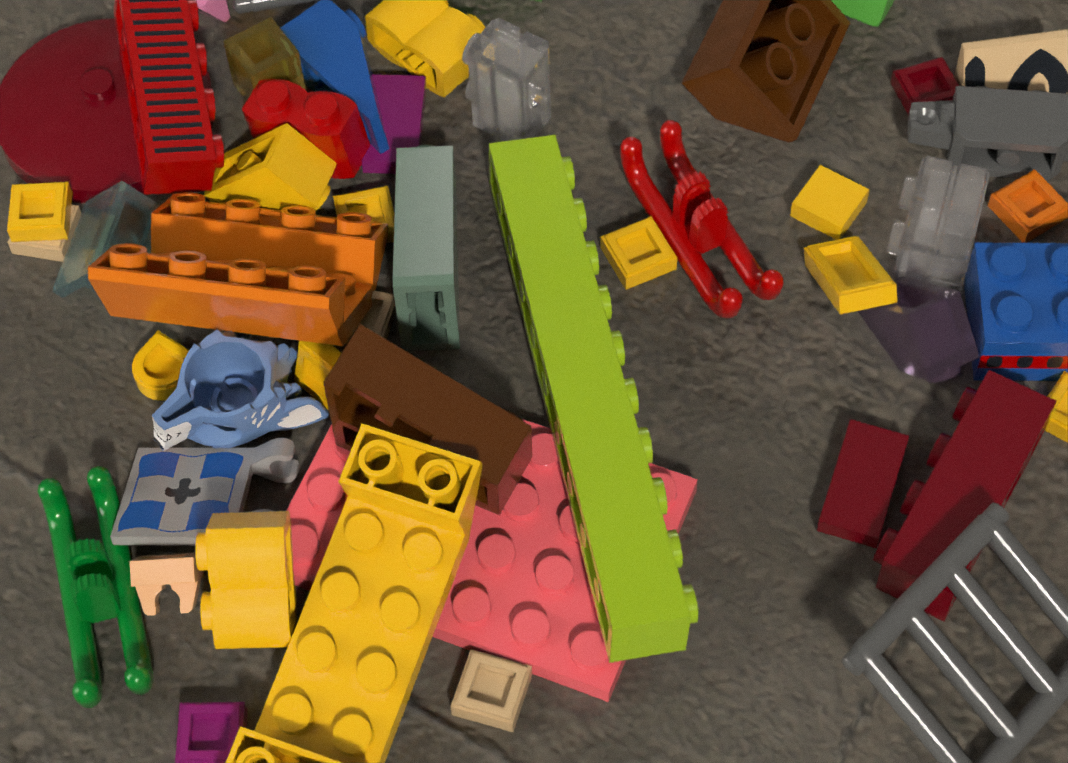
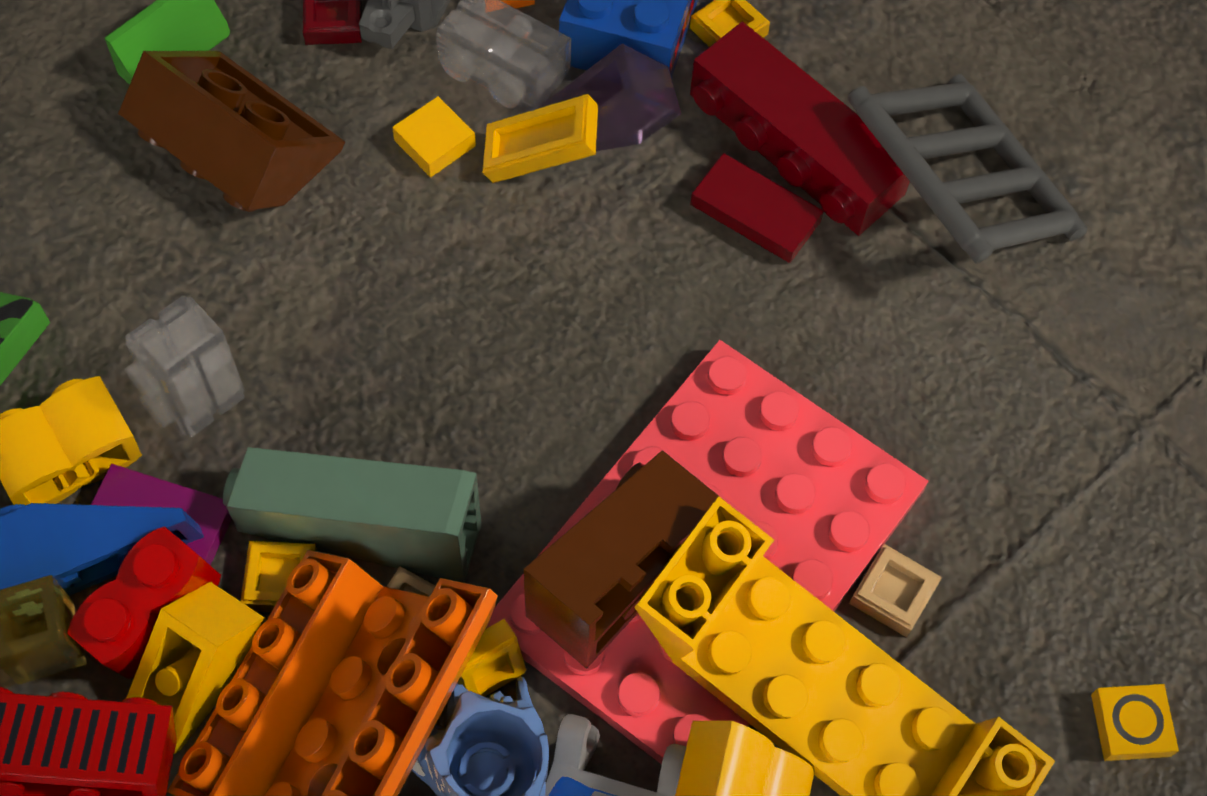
camera: 80 degrees left, 5 degrees up
(590, 404) = (600, 399): lime brick -> none
(638, 253) = (429, 320): yellow tile -> none
(696, 224) = (424, 254): red piece -> none

